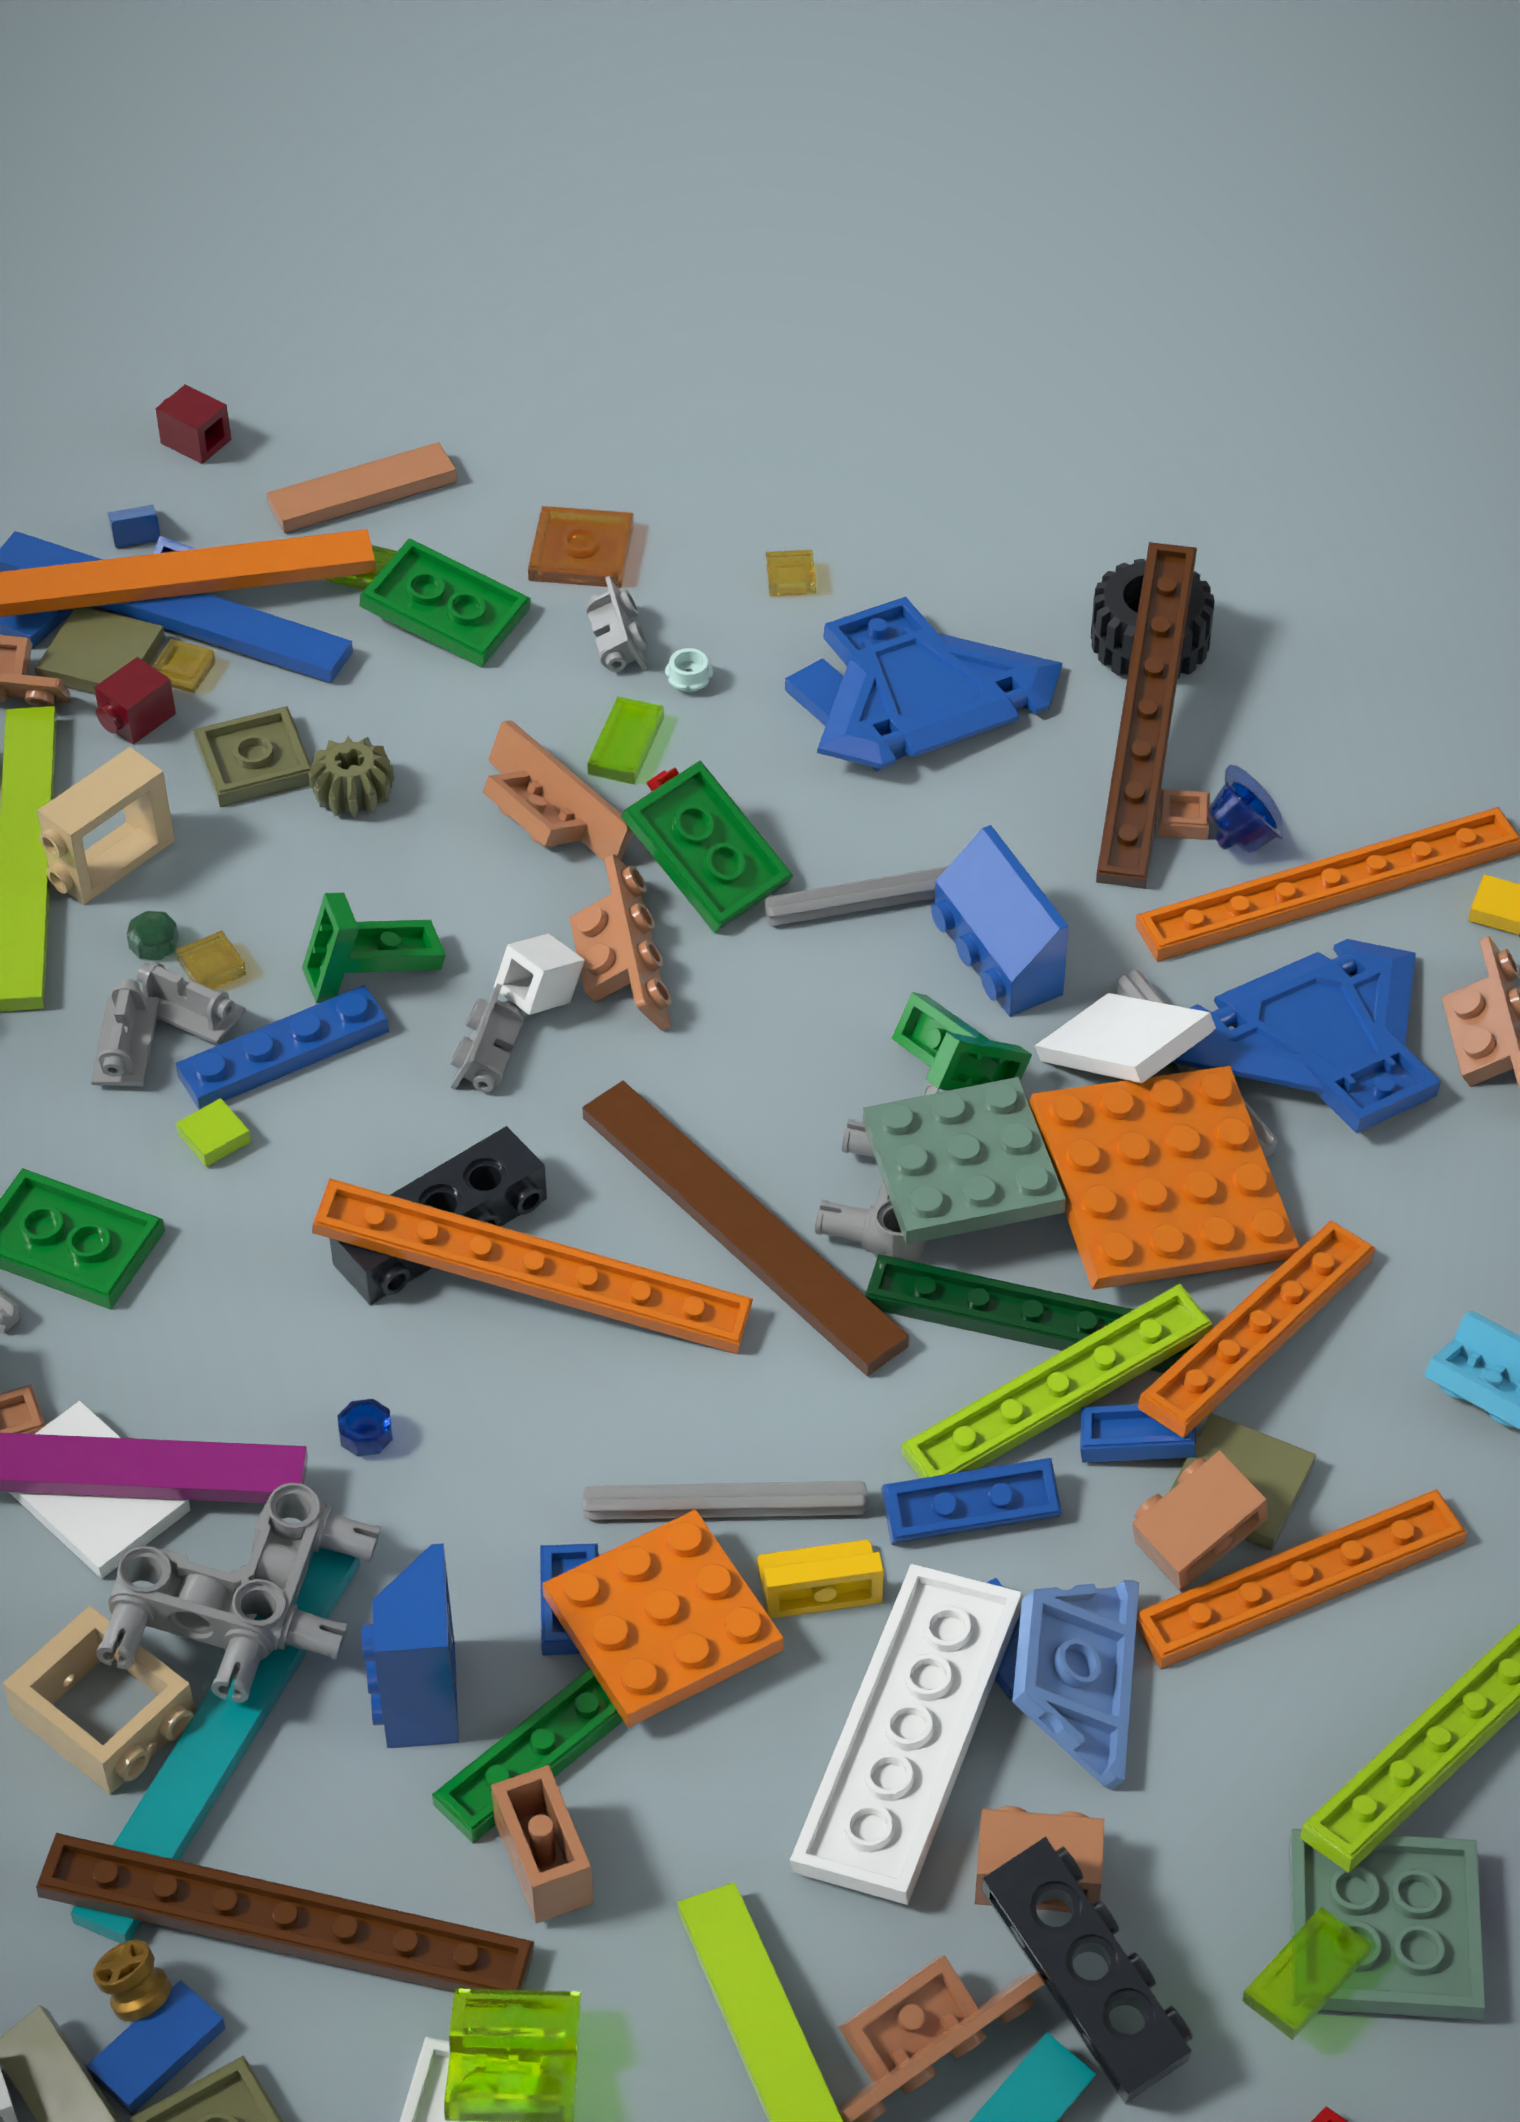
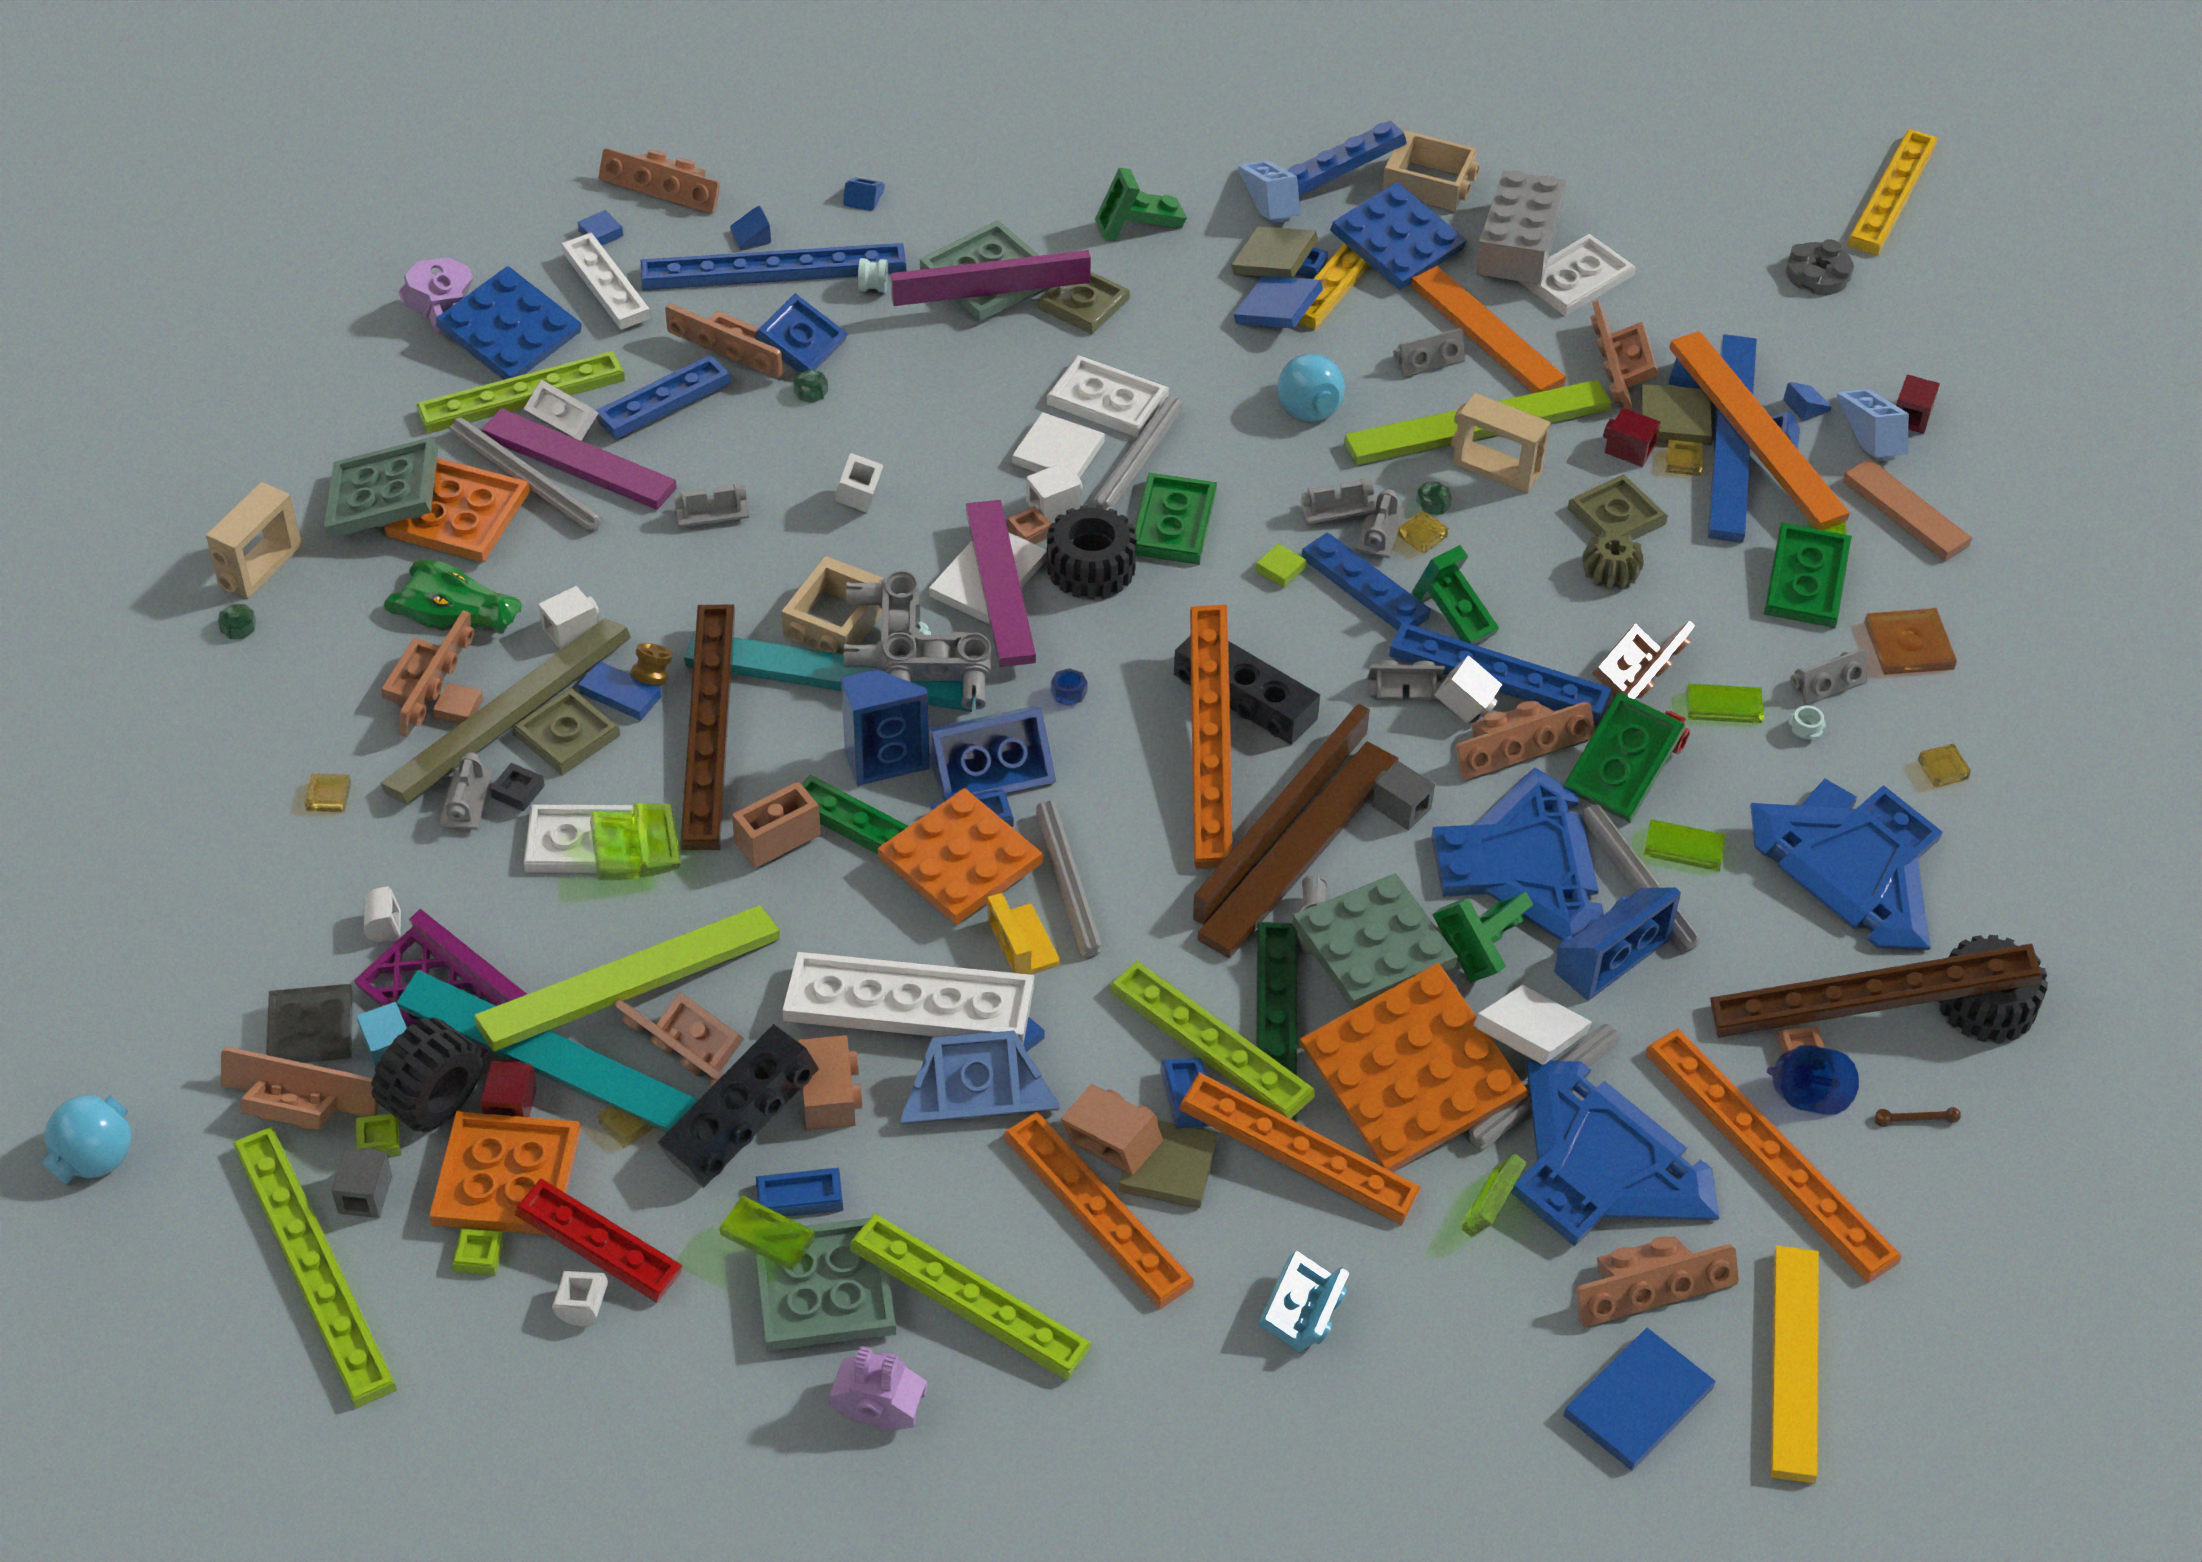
camera: 75 degrees right, 0 degrees up
(126, 1373) = (1091, 552): none -> black tyre
(209, 467) = (1876, 423): none -> light blue slope
(472, 969) = (1516, 675): none -> blue plate
(487, 1535) = (992, 753): none -> blue slope
(690, 1227) = (1280, 814): none -> reddish brown tile
(694, 1088) = (1403, 795): none -> dark grey brick
(820, 995) = (1524, 850): none -> blue plate
(845, 838) = (1684, 845): none -> clear neon green tile
(971, 1500) = (1103, 1007): blue tile -> none
(1215, 1937) = (801, 1192): none -> blue tile
(1297, 772) = (1885, 1117): none -> reddish brown hinge
(1363, 1148) = (1493, 1195): none -> clear neon green tile

